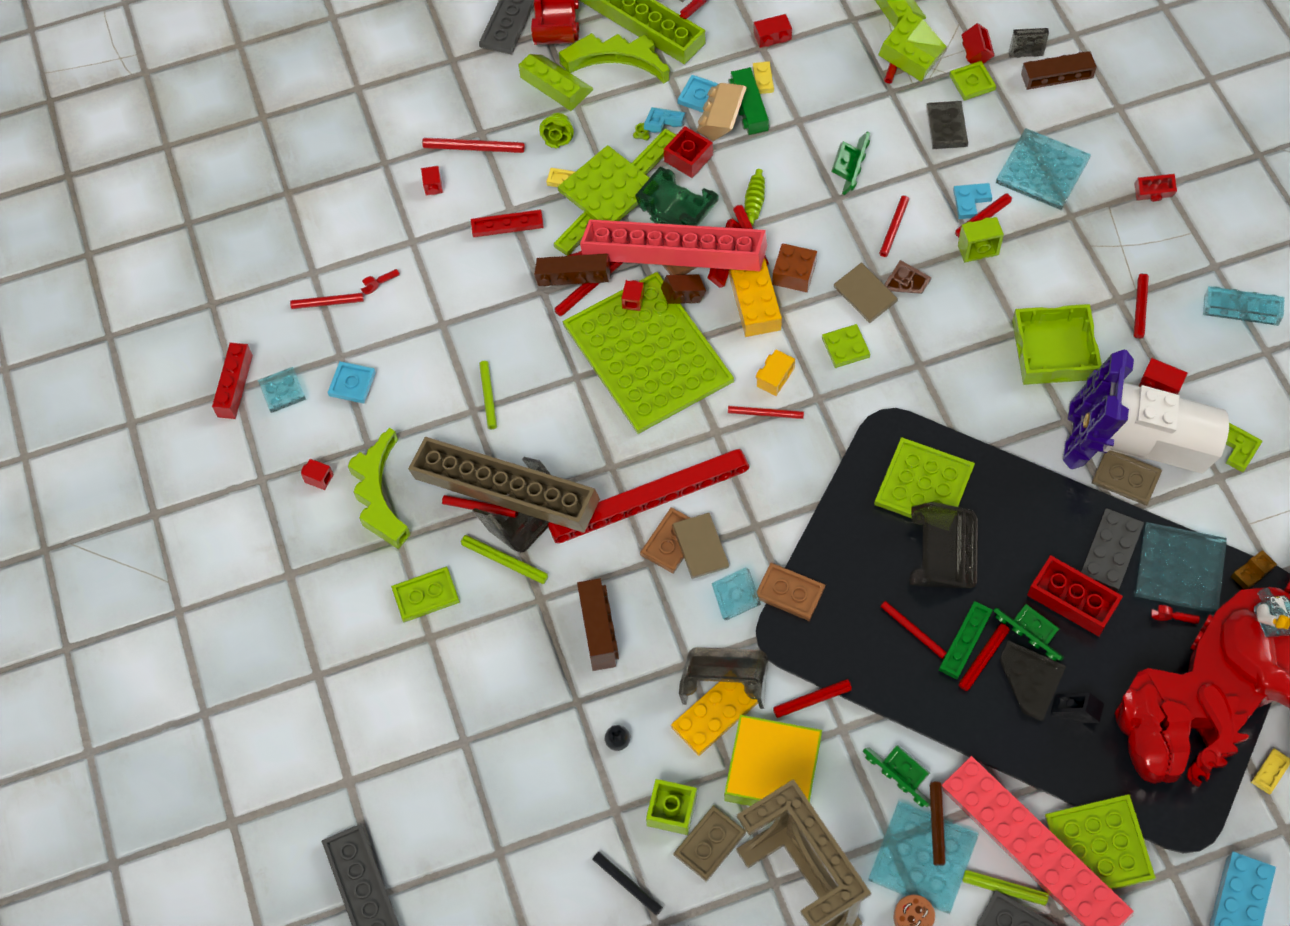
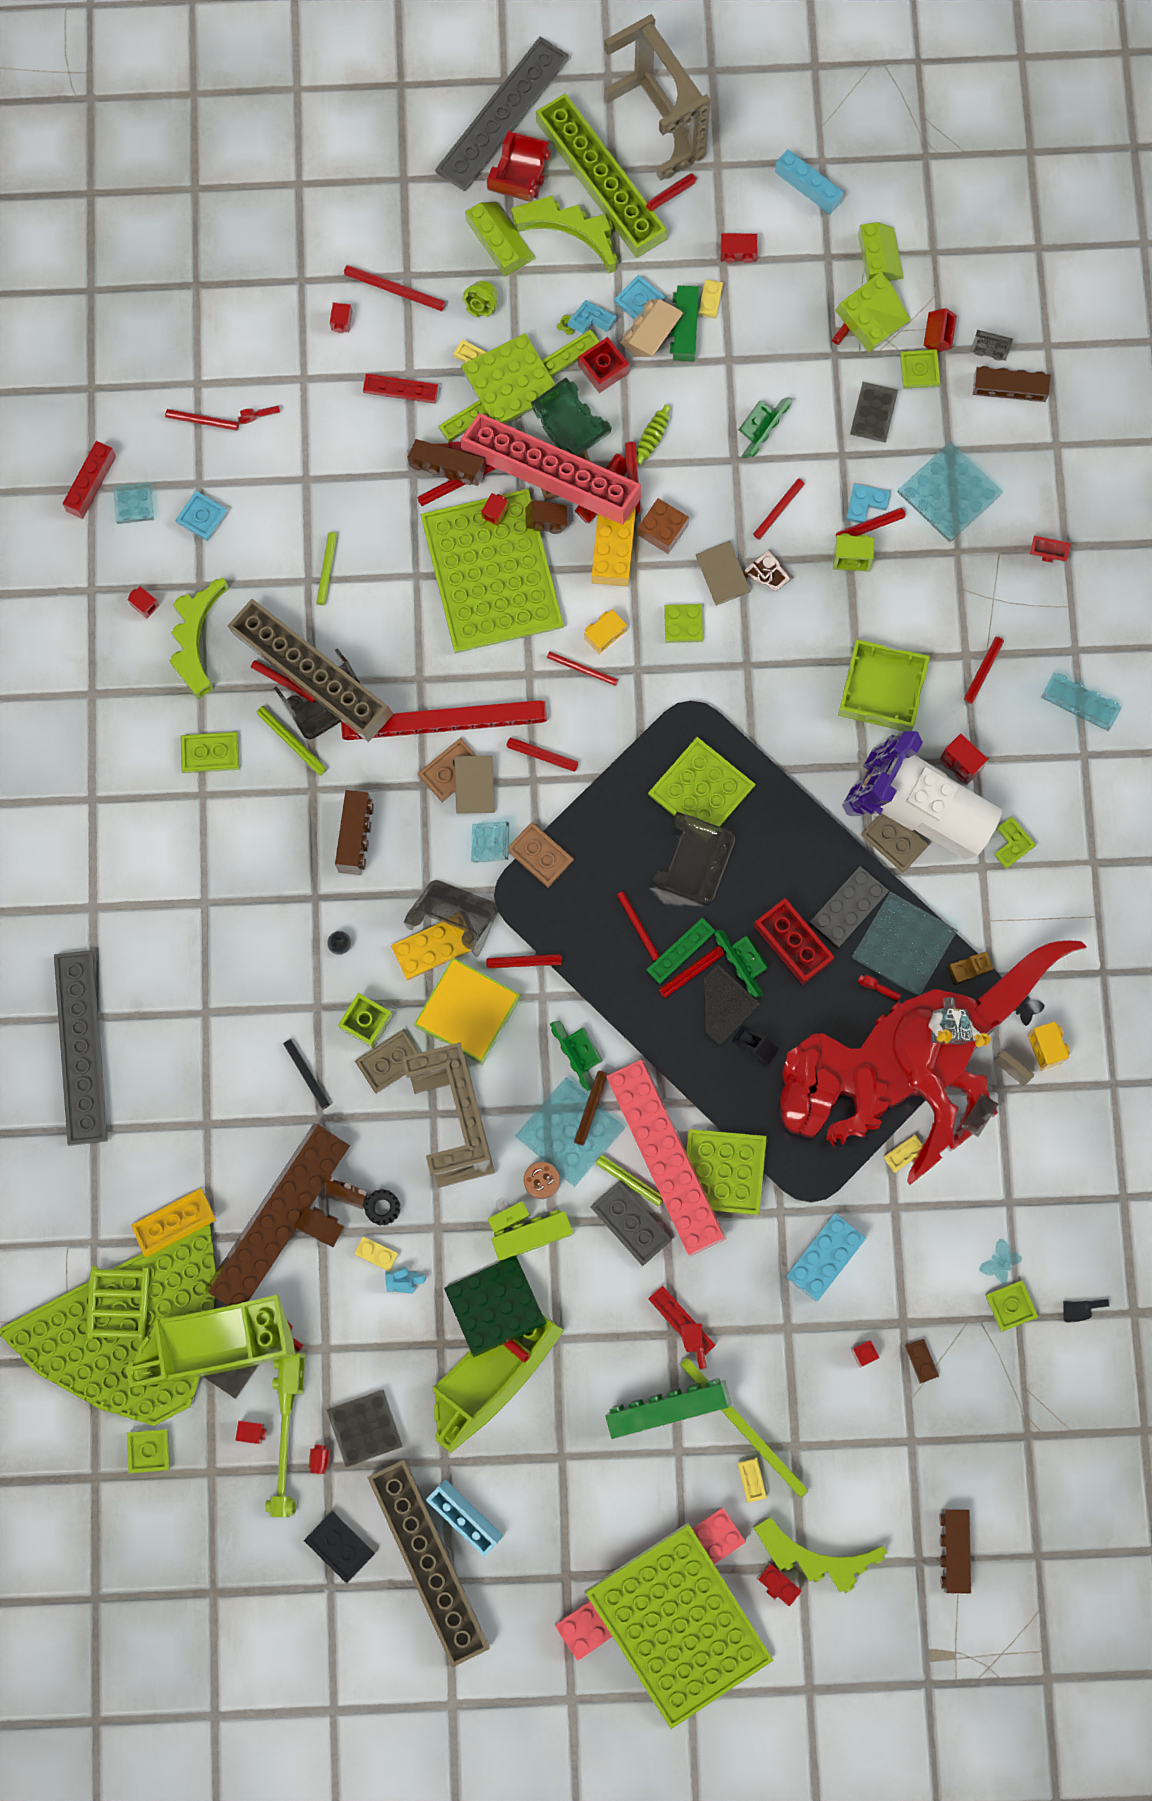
camera: 15 degrees right, 15 degrees up
(756, 499) = (542, 754): none -> red axle

